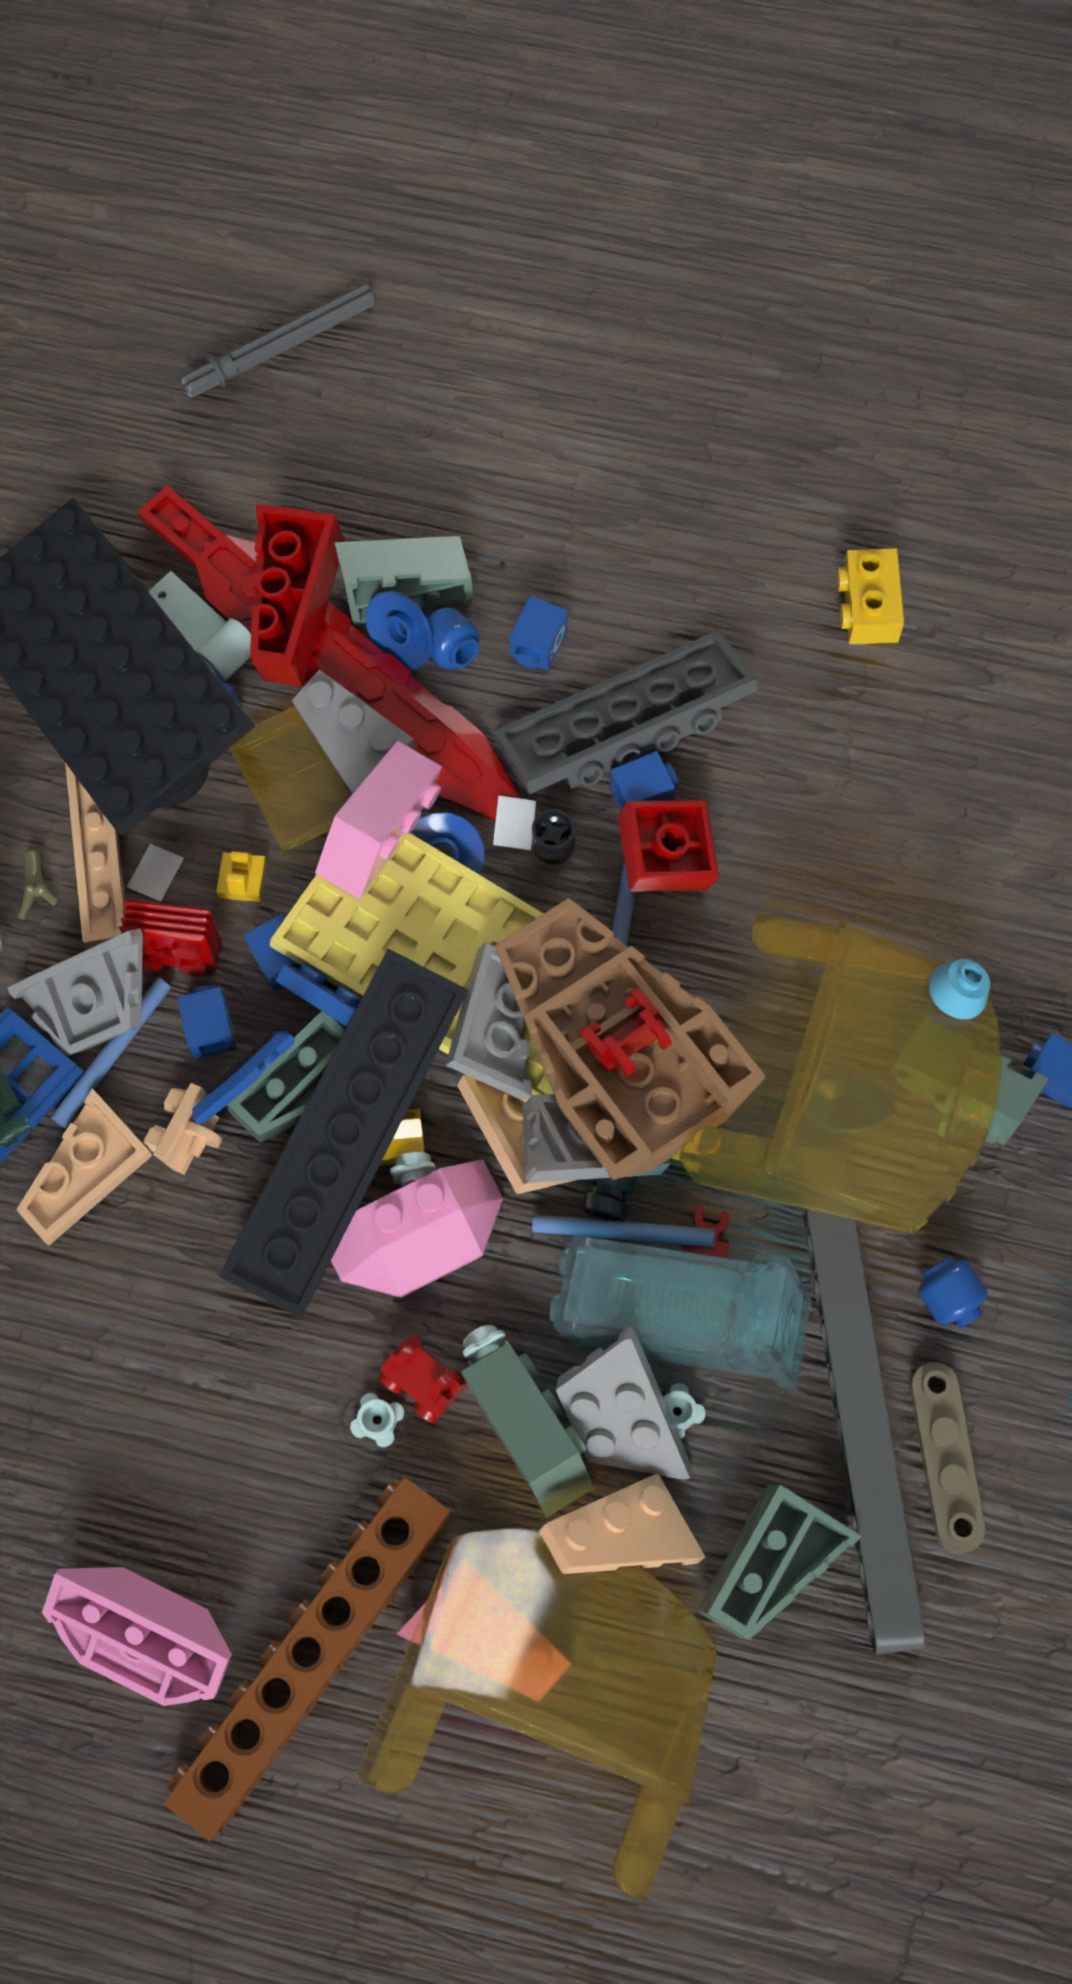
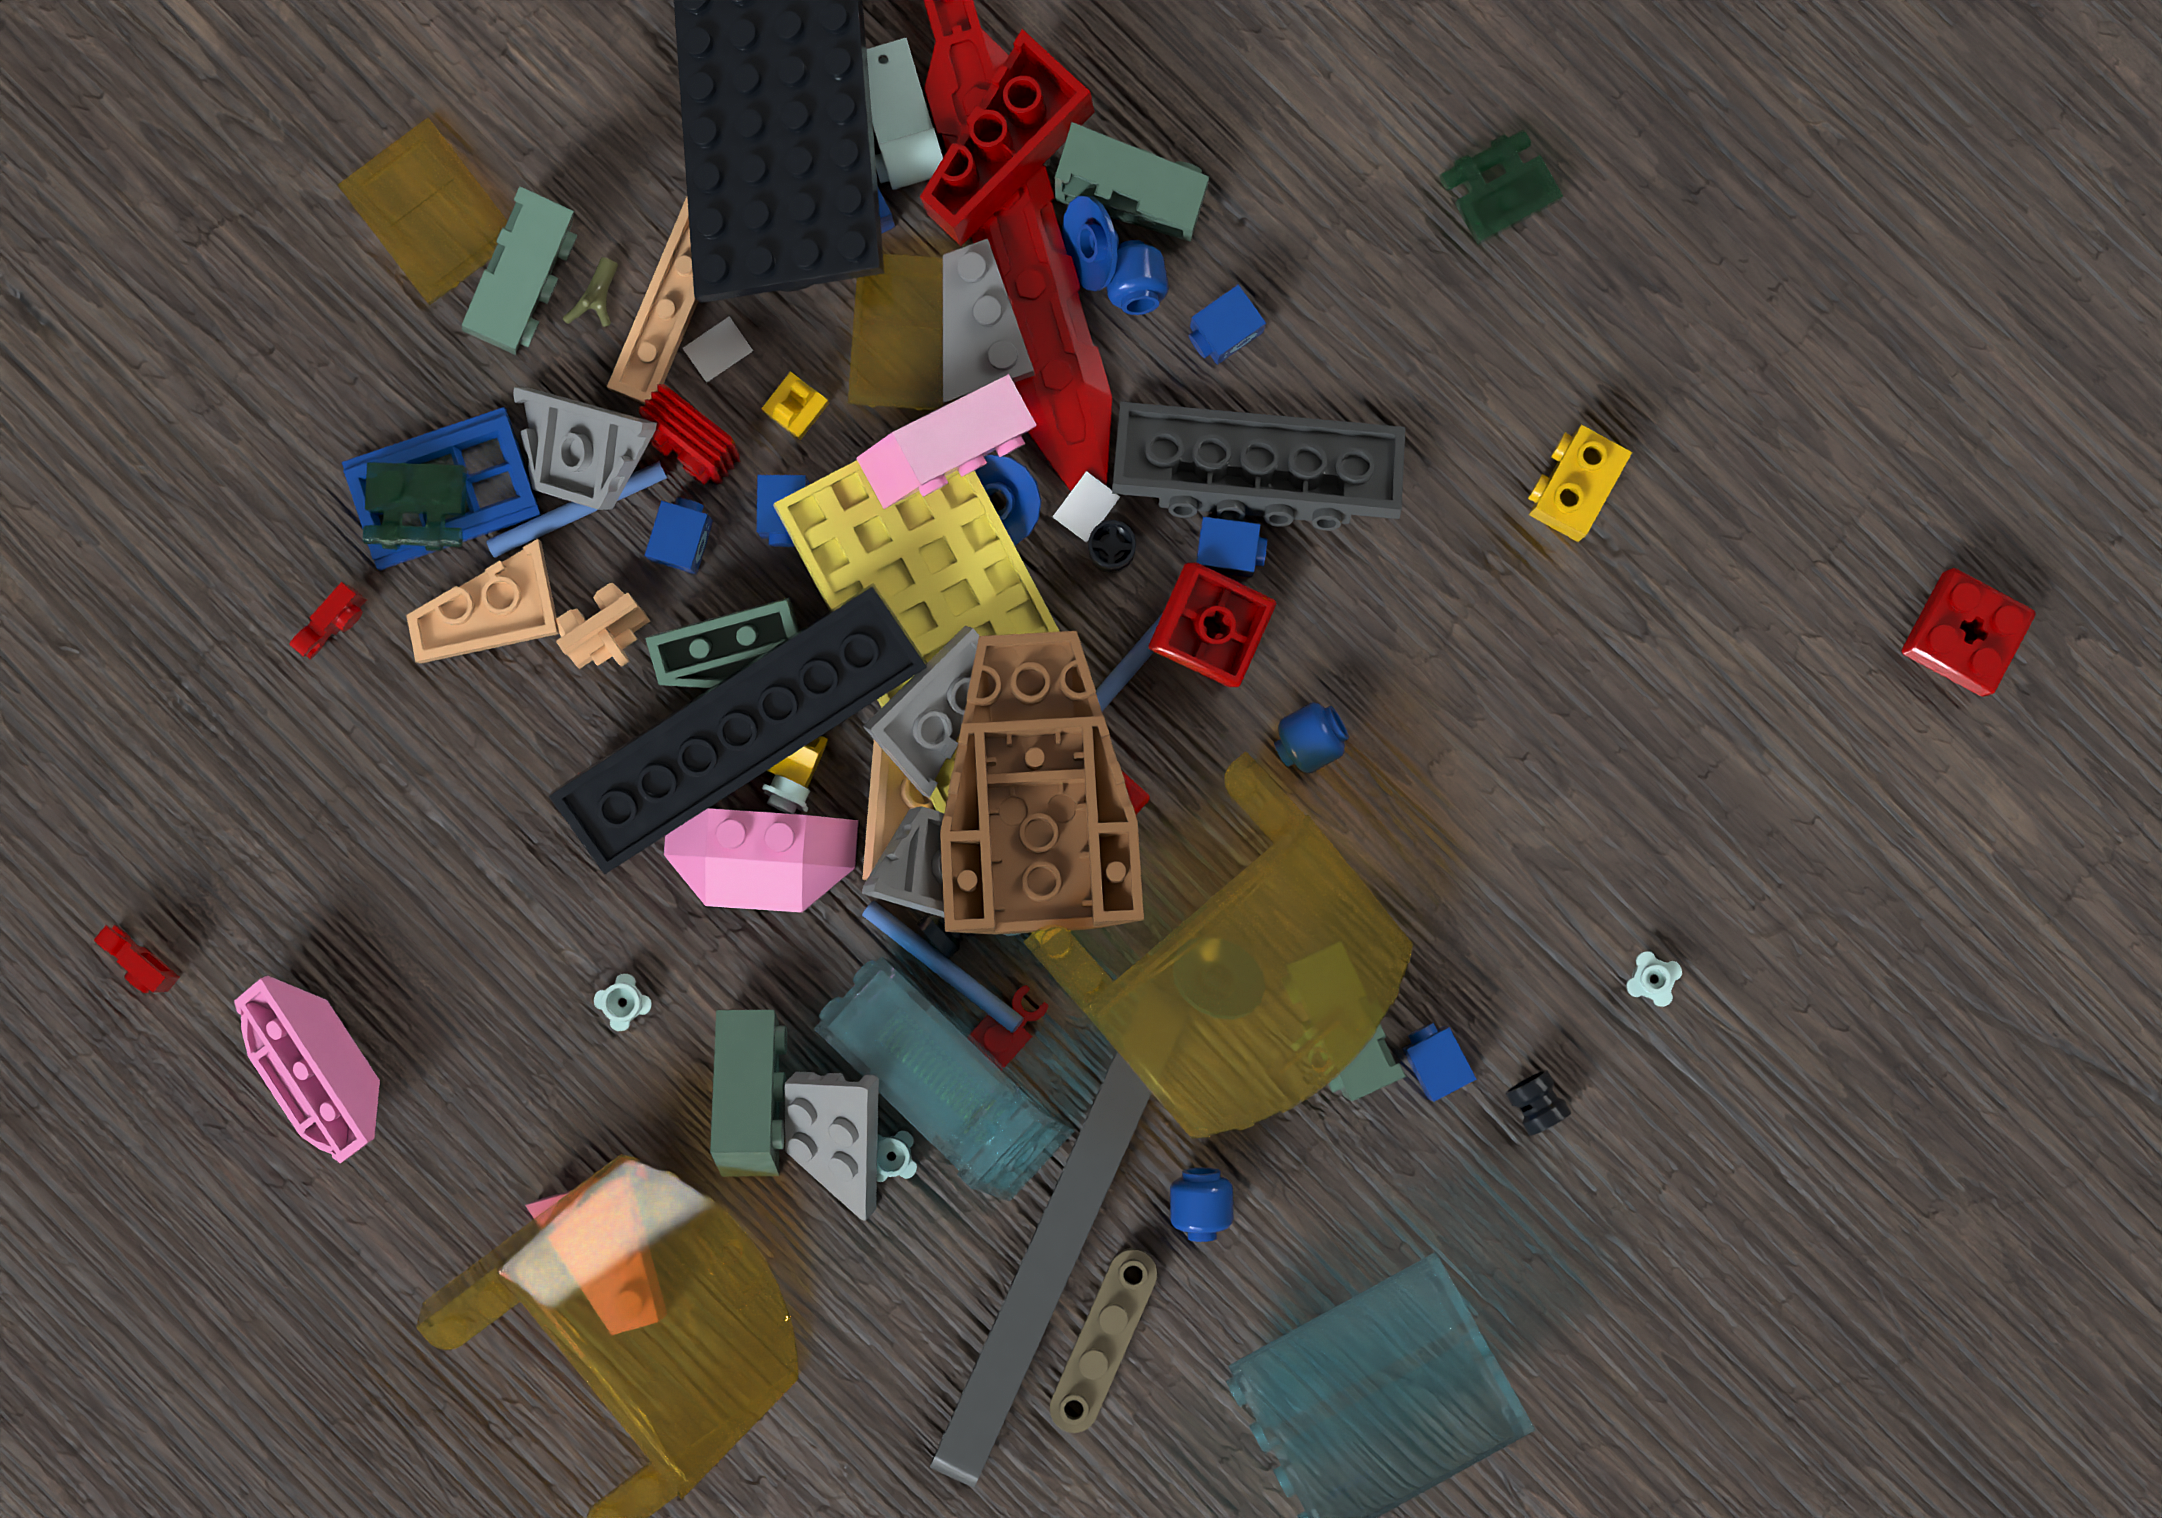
camera: 30 degrees right, 15 degrees up
(212, 1810) = (289, 1247): dark orange brick -> none
(242, 1075) = (673, 615): blue tile -> none
(313, 988) = (792, 583): blue wing -> none
(422, 1378) = (680, 991): red piece -> none
(483, 1342) = (755, 995): light aqua plate -> none
(623, 1530) = (775, 1234): light nougat wing -> none
(639, 1032) = (1045, 802): red piece -> none
(686, 441) = (1507, 199): none -> clear green plate
(772, 1561) = (888, 1339): sand green wedge -> none
(797, 886) = (1311, 737): none -> blue head
(960, 988) = (1376, 946): medium azure cone -> none

